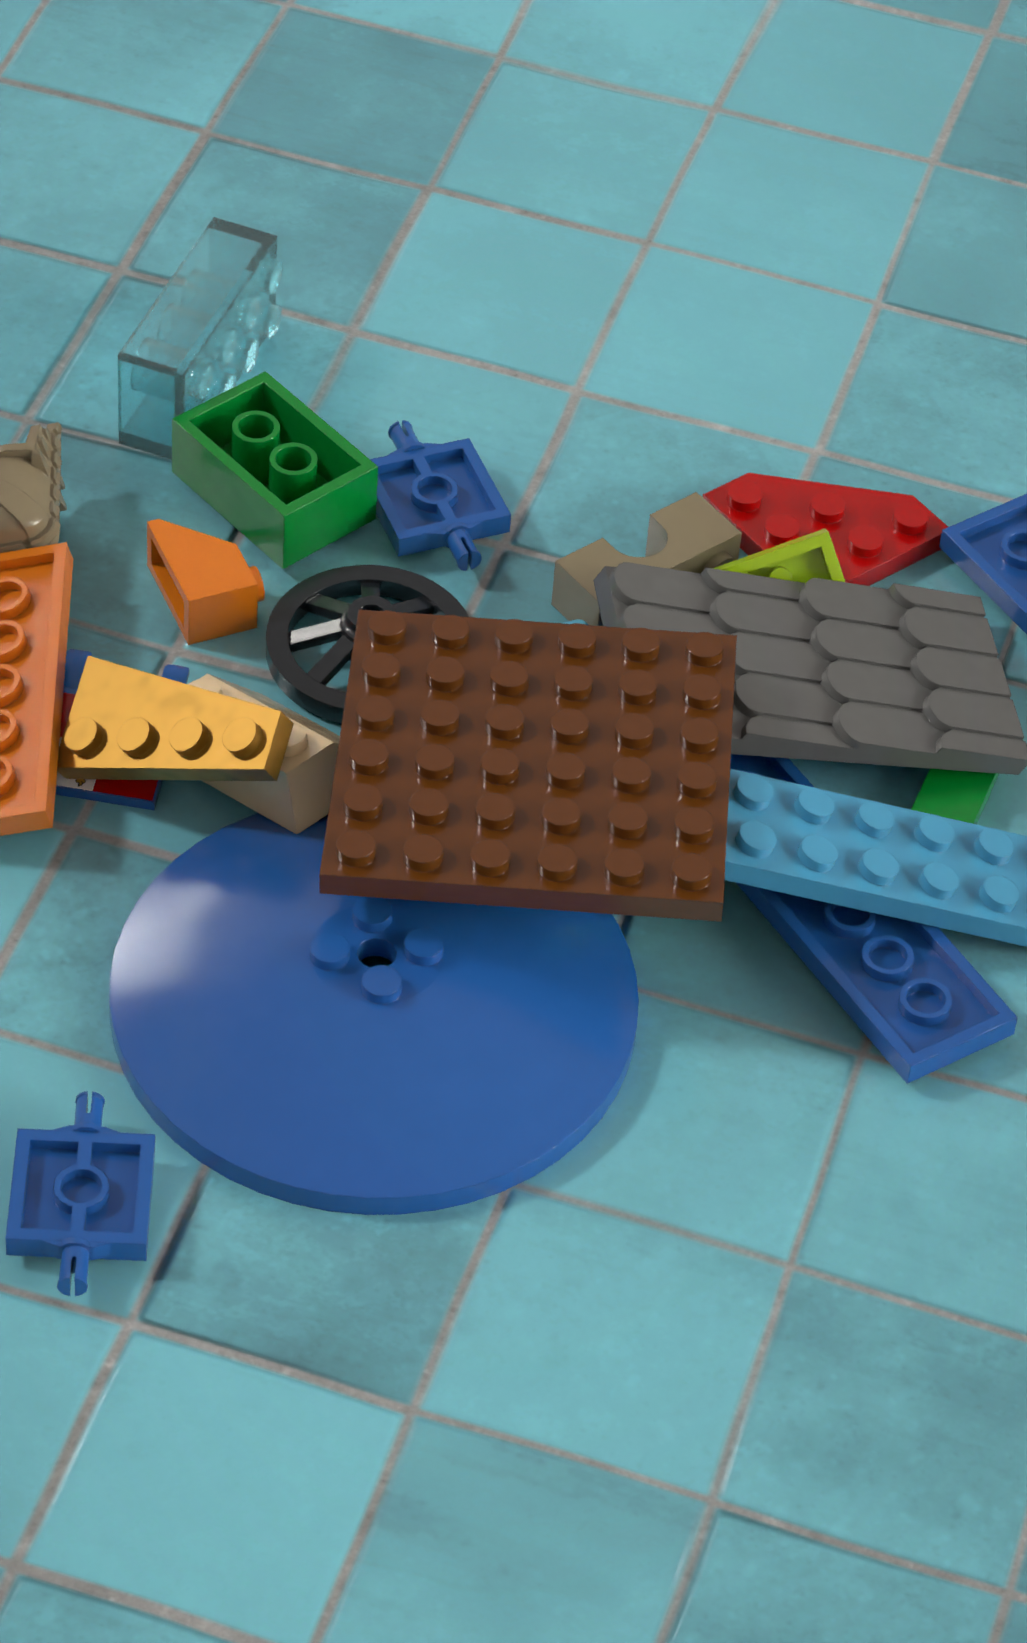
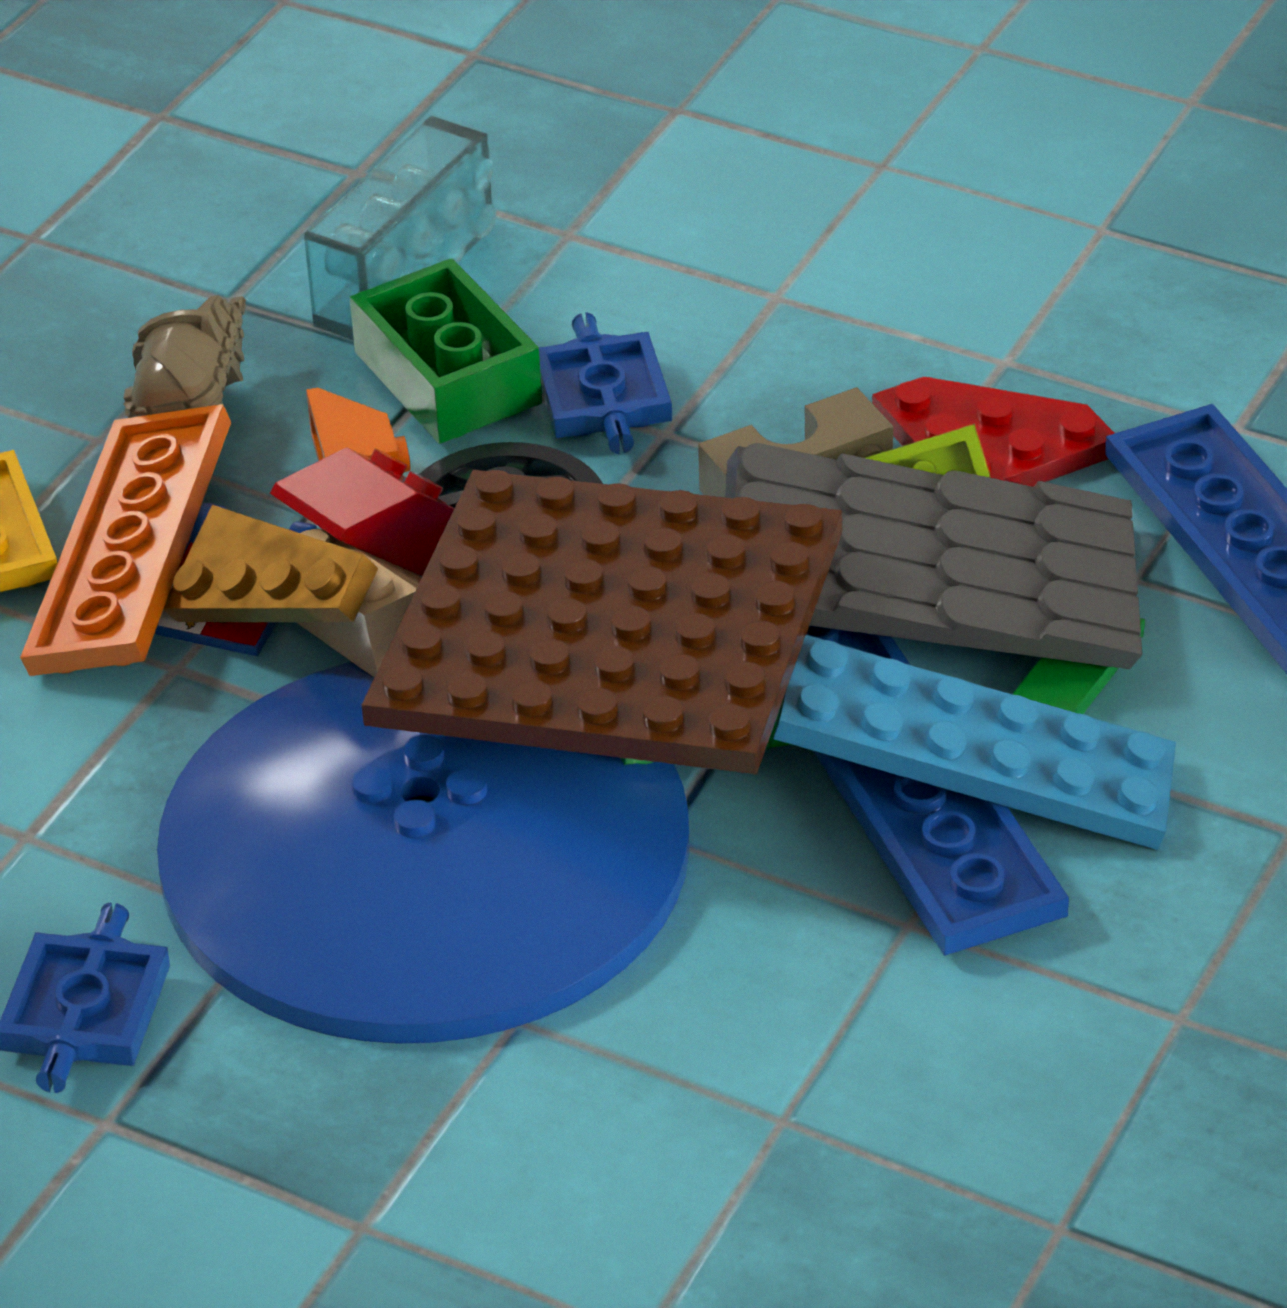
camera: 15 degrees right, 5 degrees down
(249, 647) = (370, 505): none -> red slope

